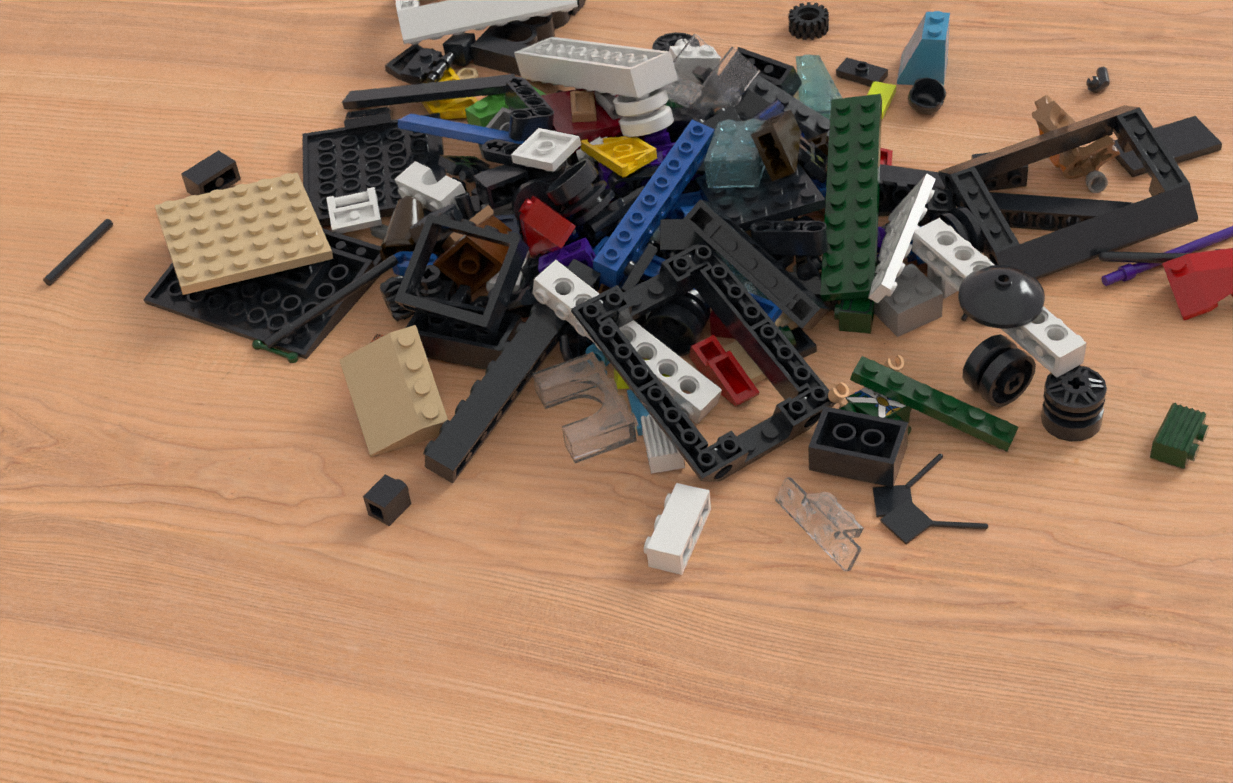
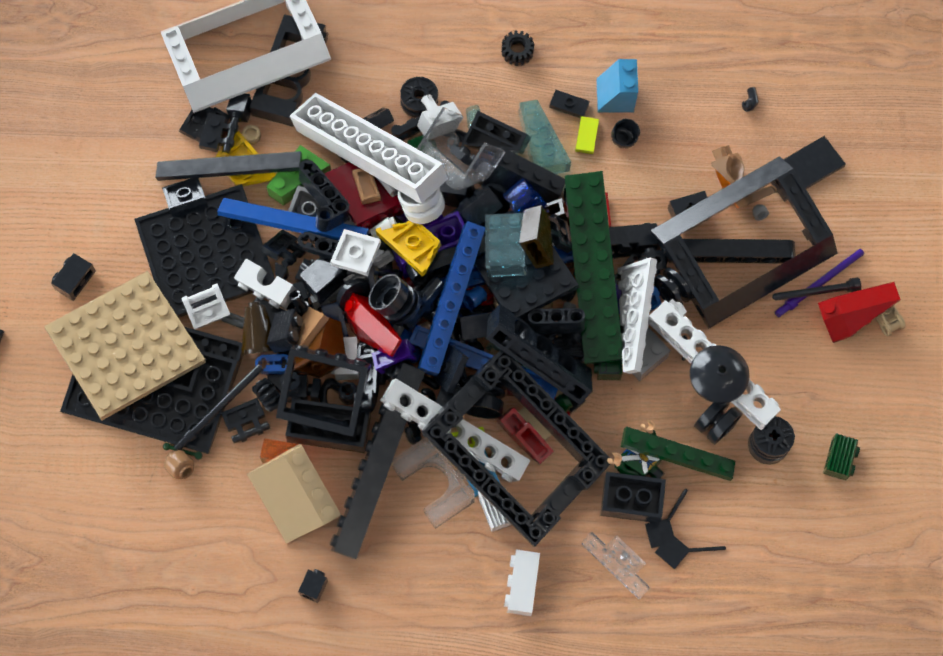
camera: 20 degrees left, 25 degrees up
(263, 358) = (179, 464): none -> medium nougat head
(361, 320) = (242, 415): none -> black plate

